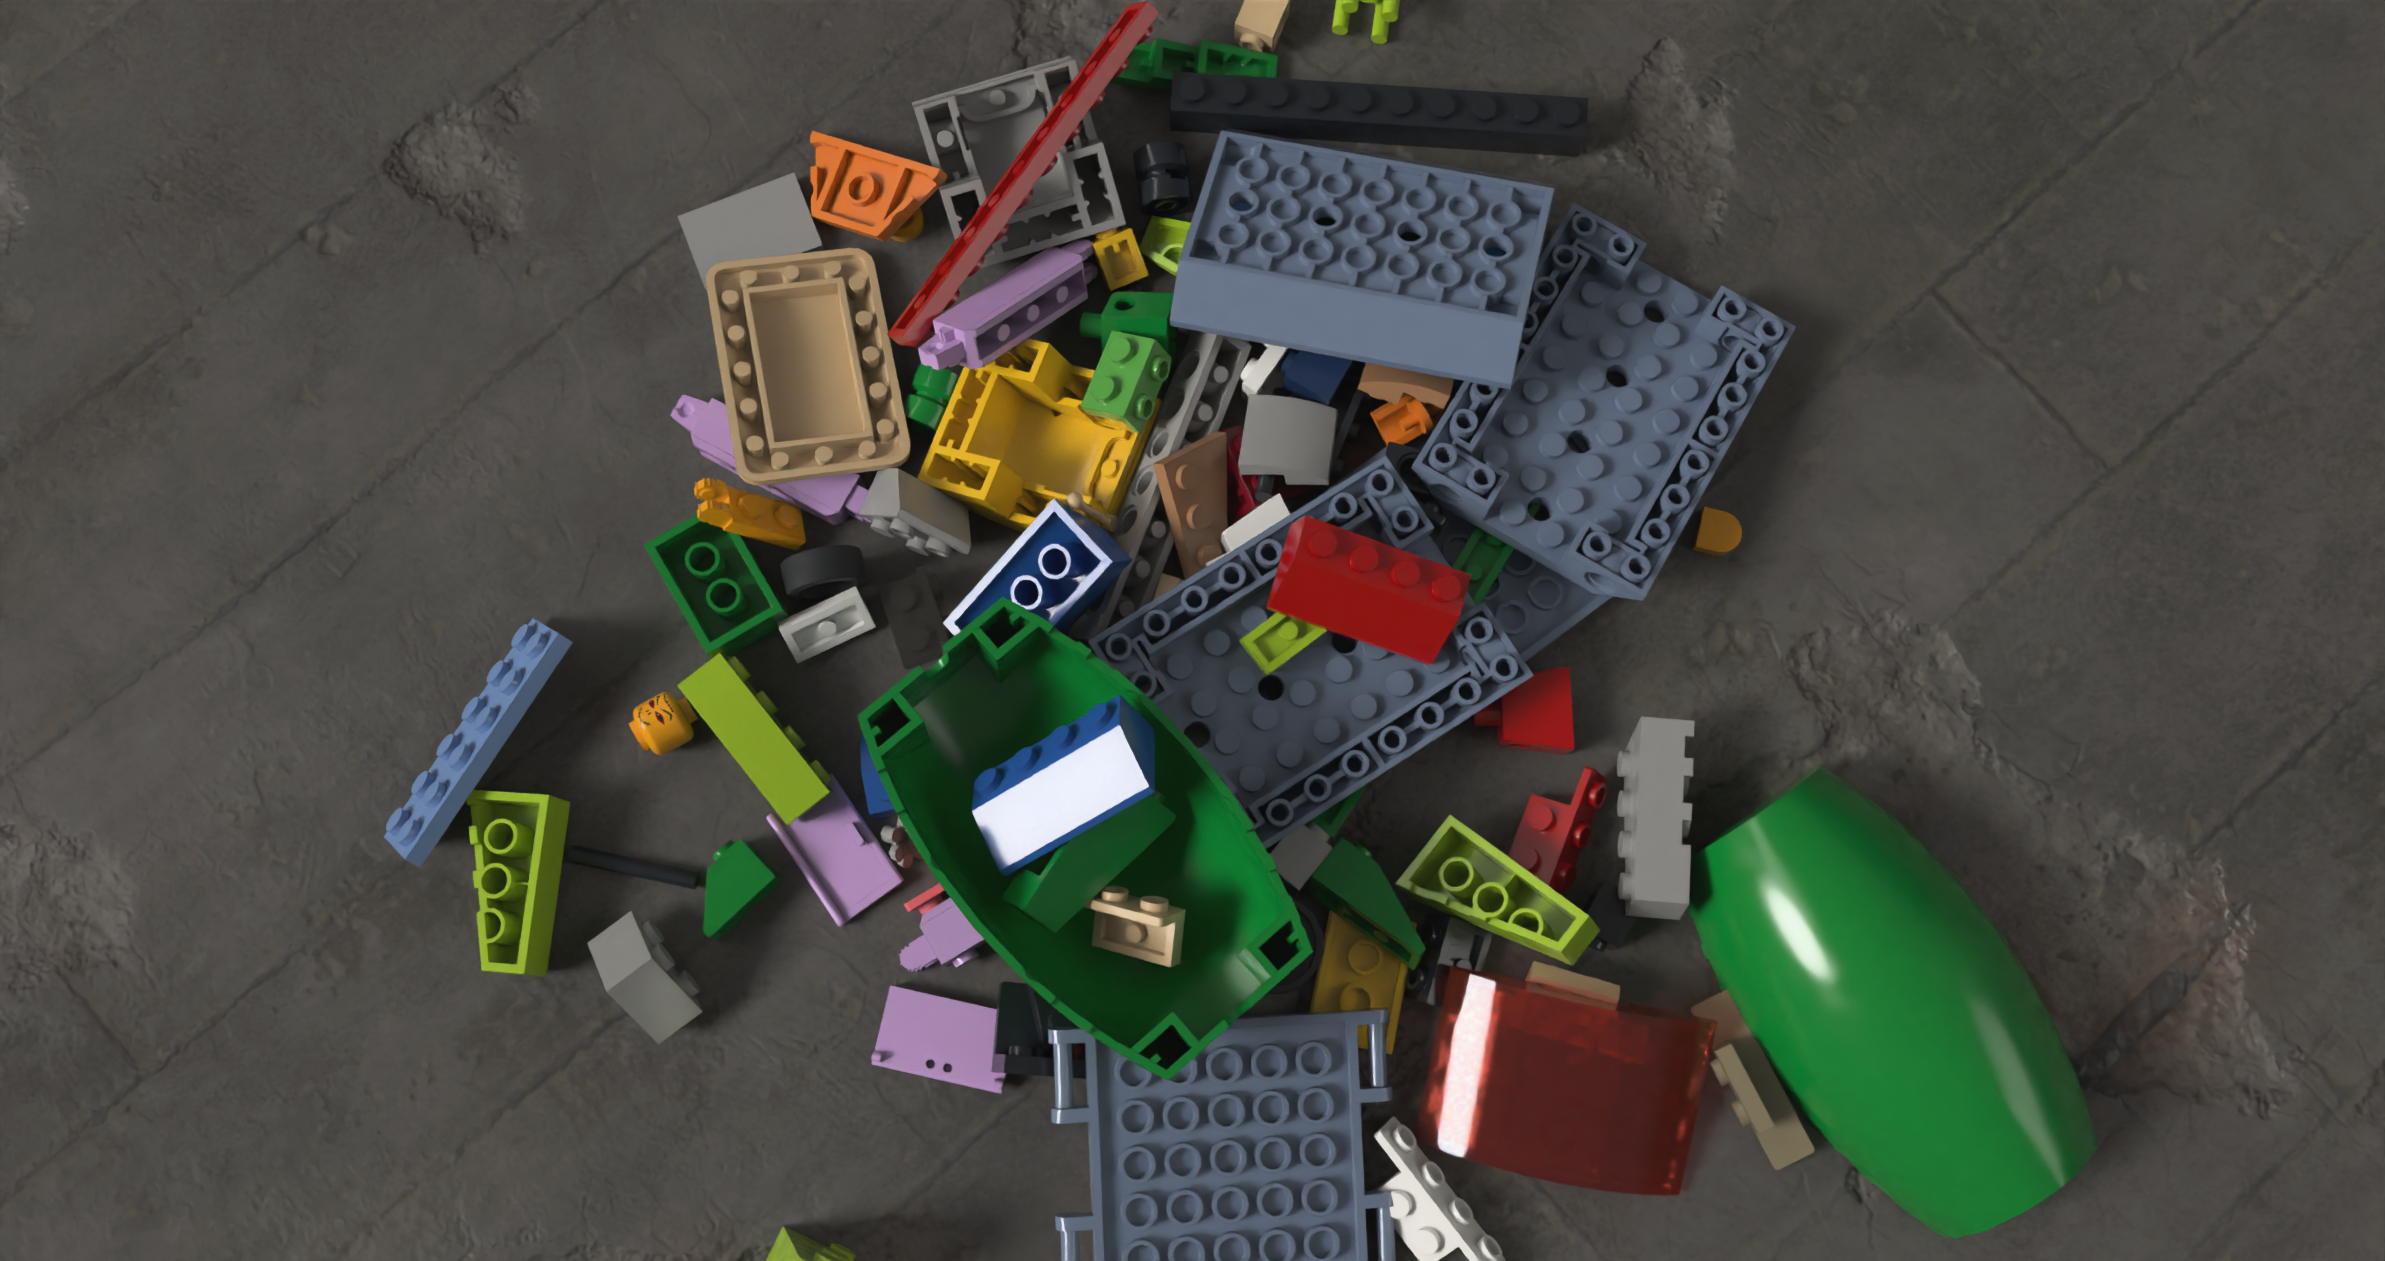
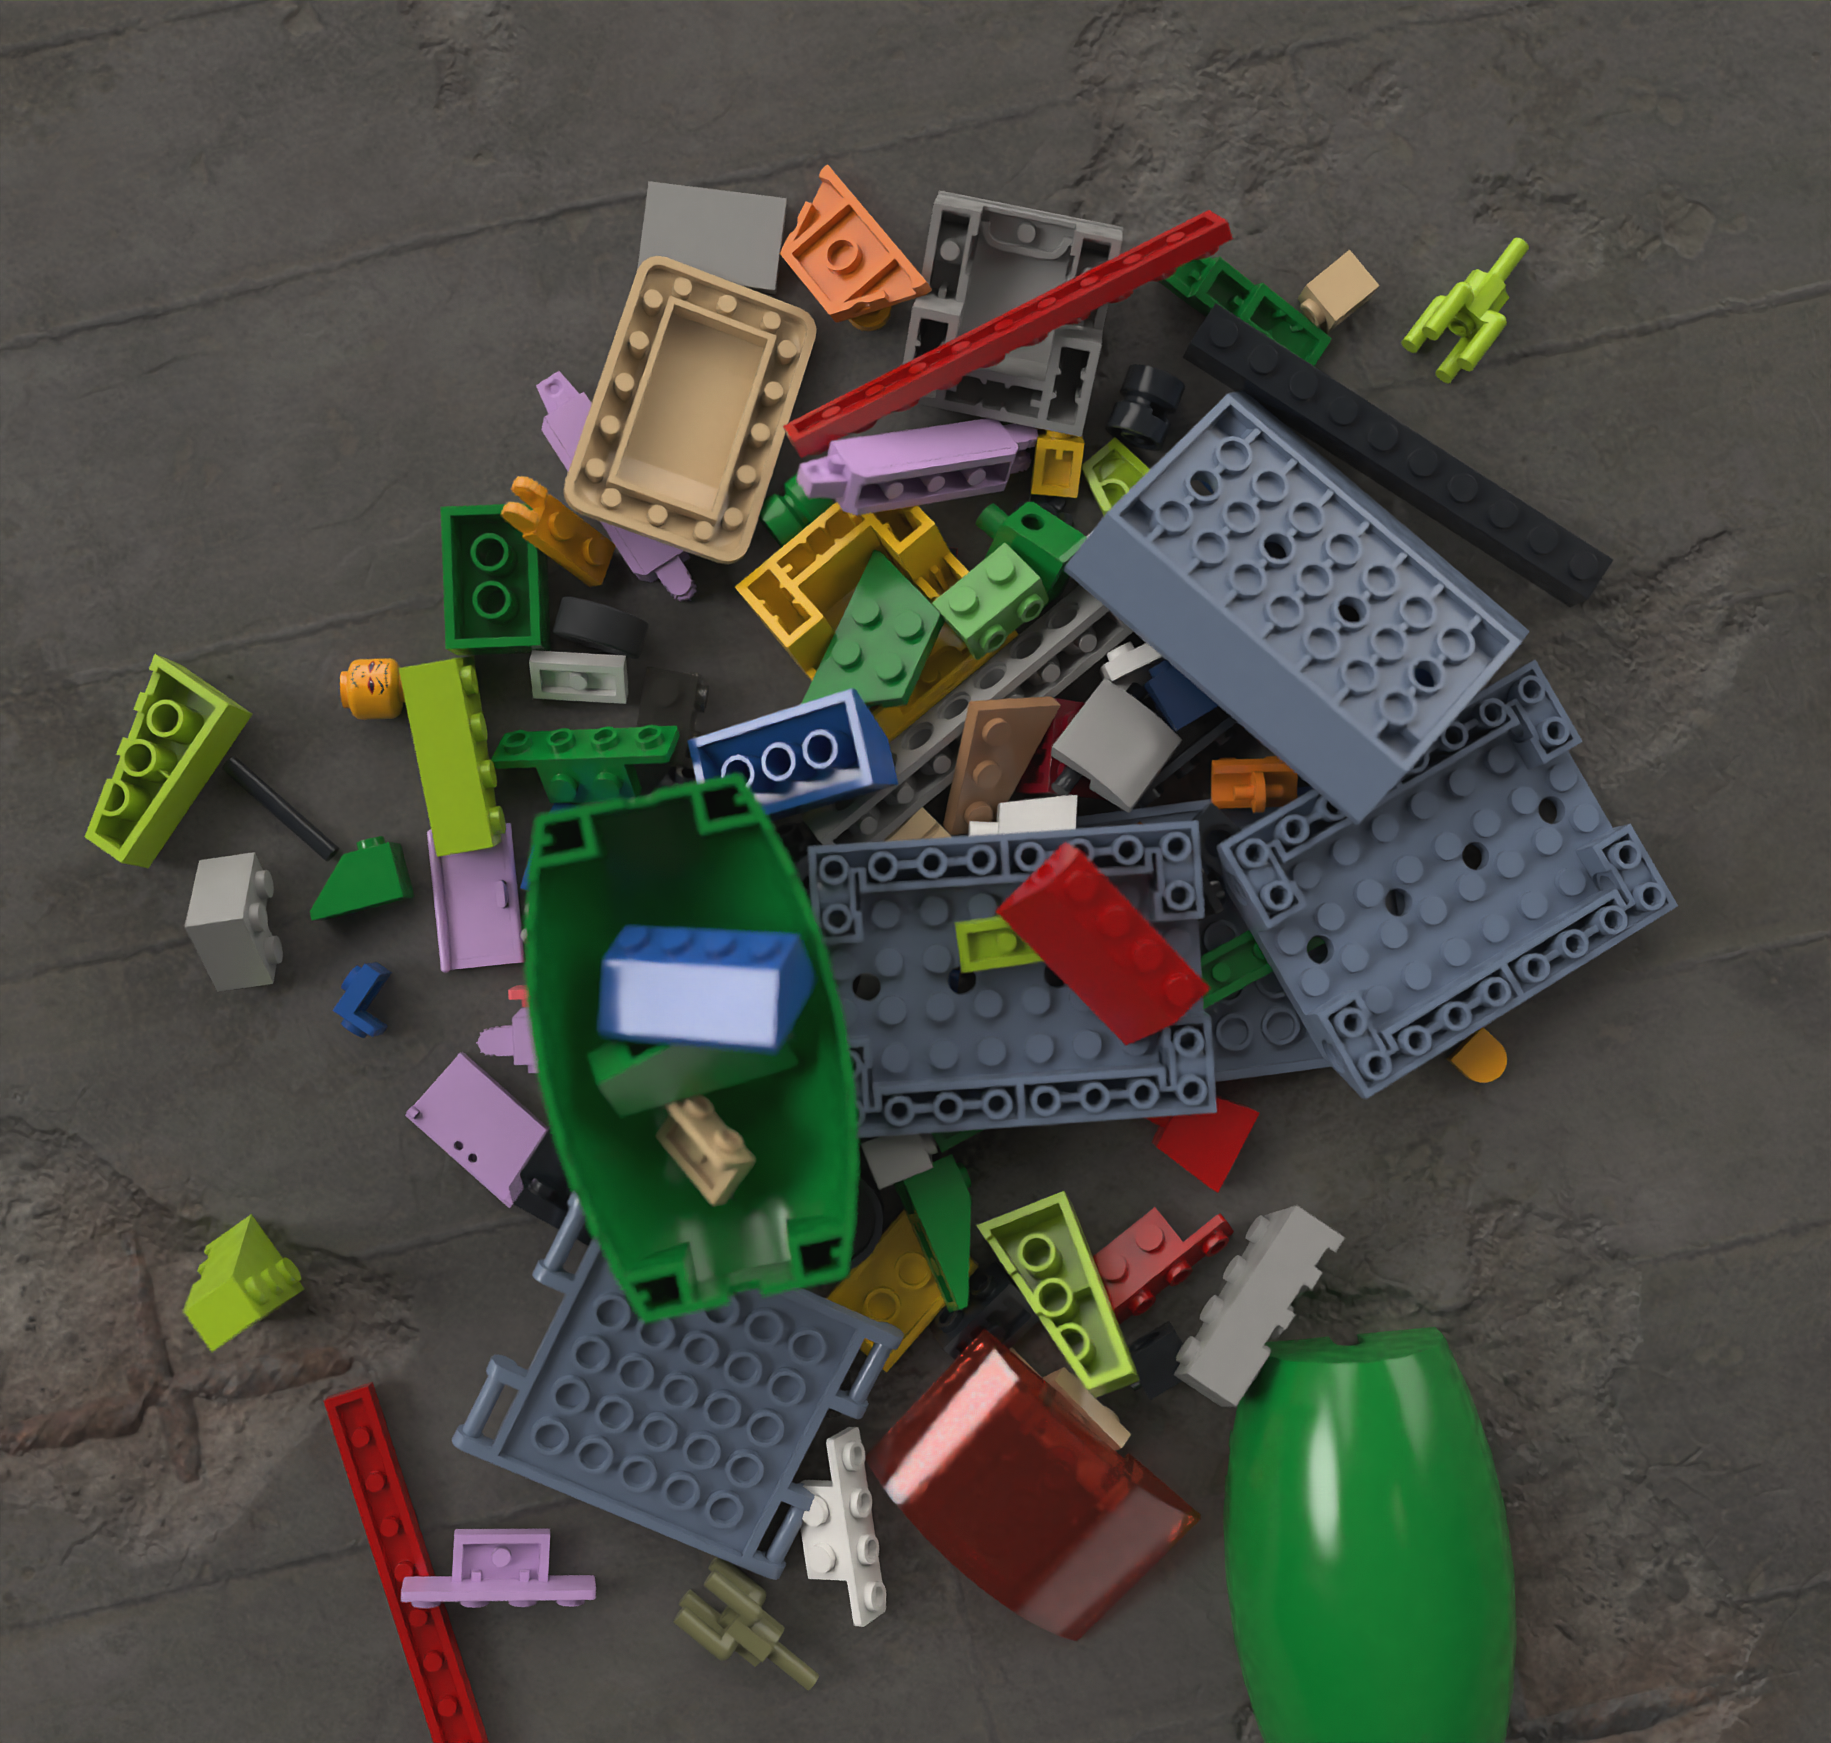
camera: 30 degrees right, 10 degrees up
(476, 742) = (190, 610): medium blue plate -> none
(779, 976) = (360, 990): none -> blue bracket
(863, 682) = (587, 762): none -> green bracket
(917, 513) = (719, 621): light grey slope -> none
(1054, 455) = (879, 639): none -> green wing
(1109, 522) = (899, 729): tan hinge -> none
(1390, 383) = (1247, 750): medium nougat slope -> none
(1757, 1089) = (1204, 1578): dark tan bracket -> none

